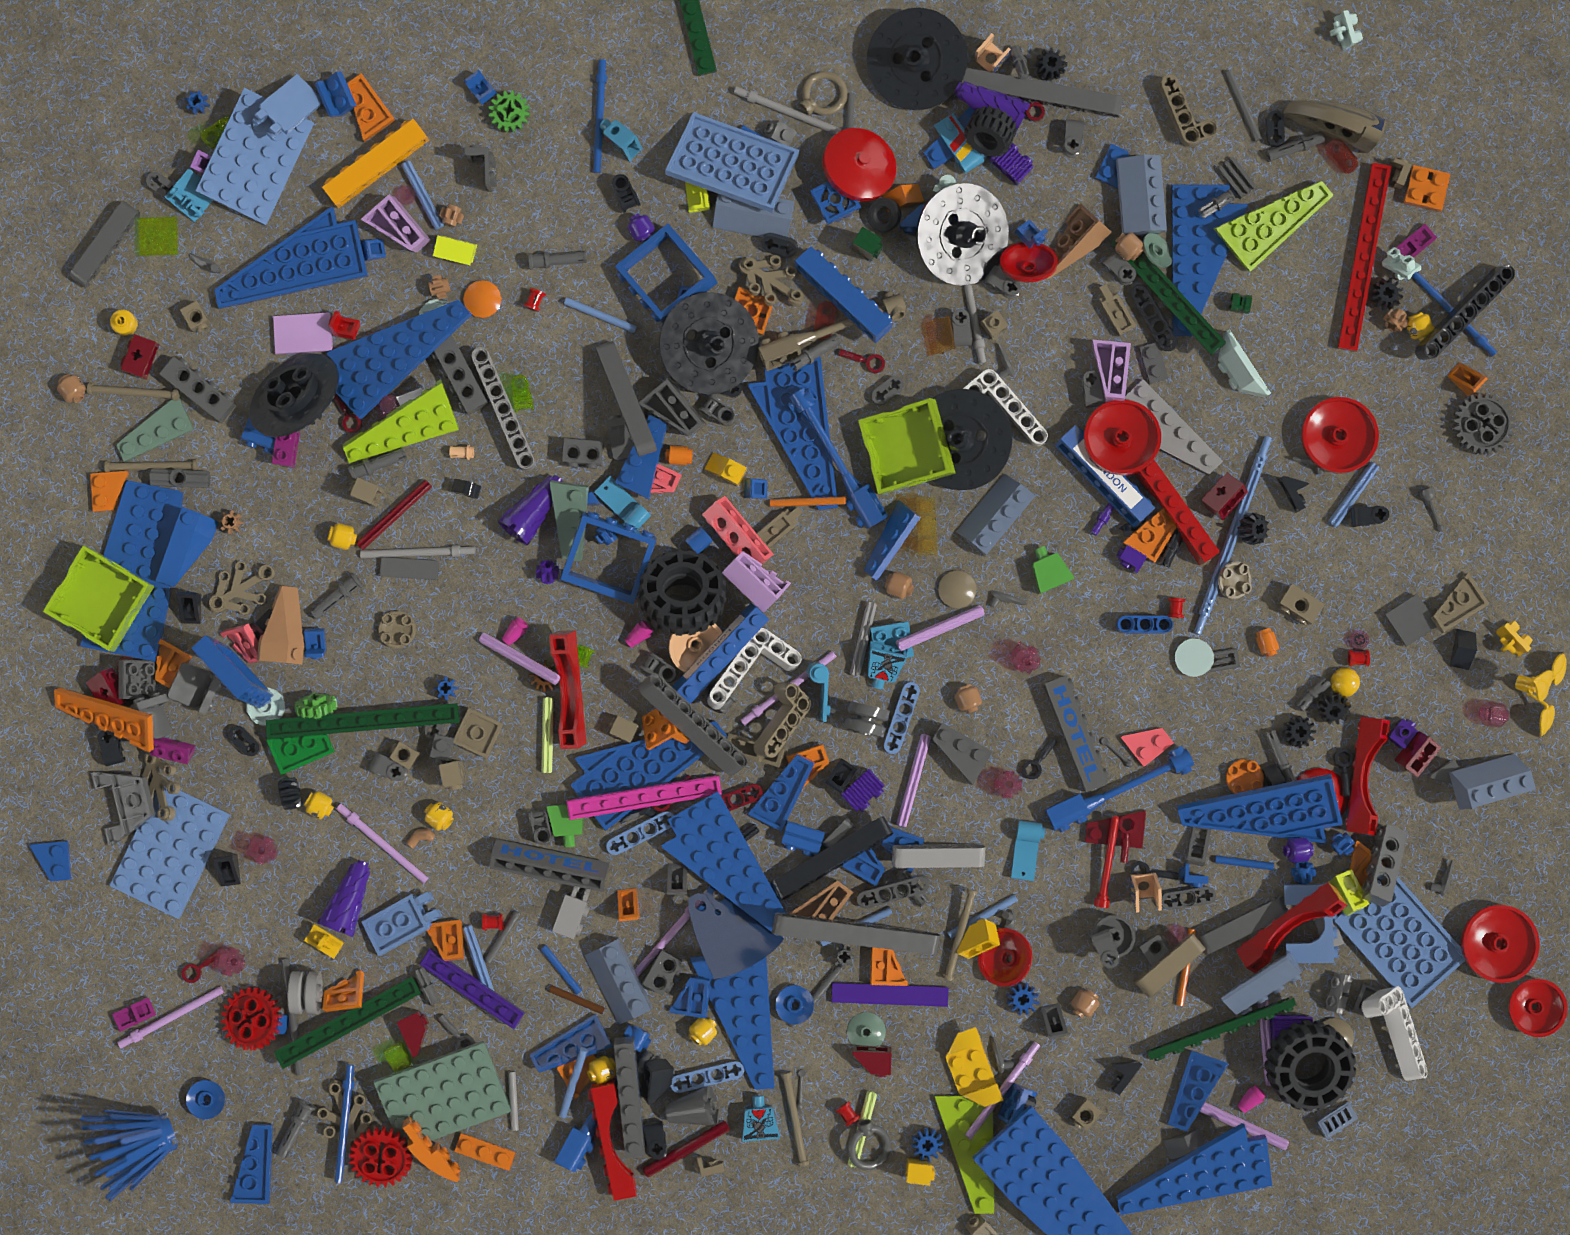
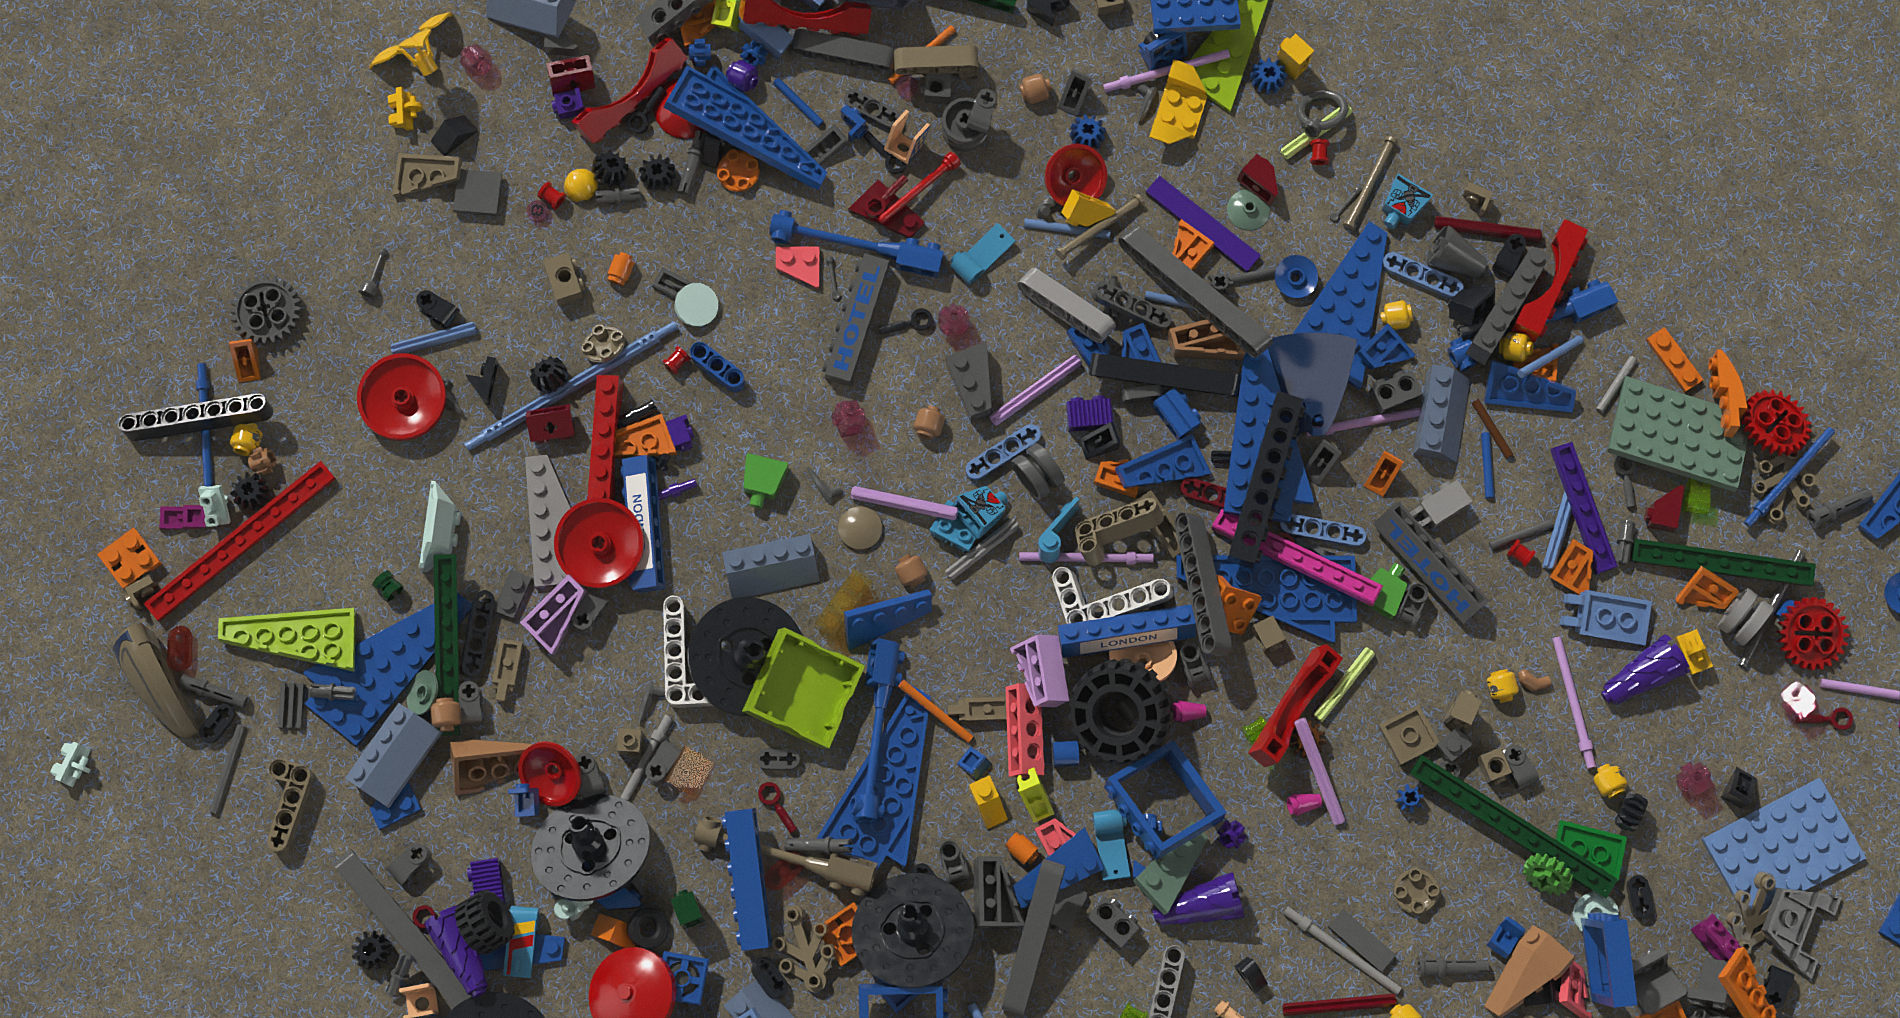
camera: 145 degrees left, 10 degrees down
(696, 494) = (1035, 796): none -> neon yellow hinge
(733, 896) = (1283, 405): none -> black brick

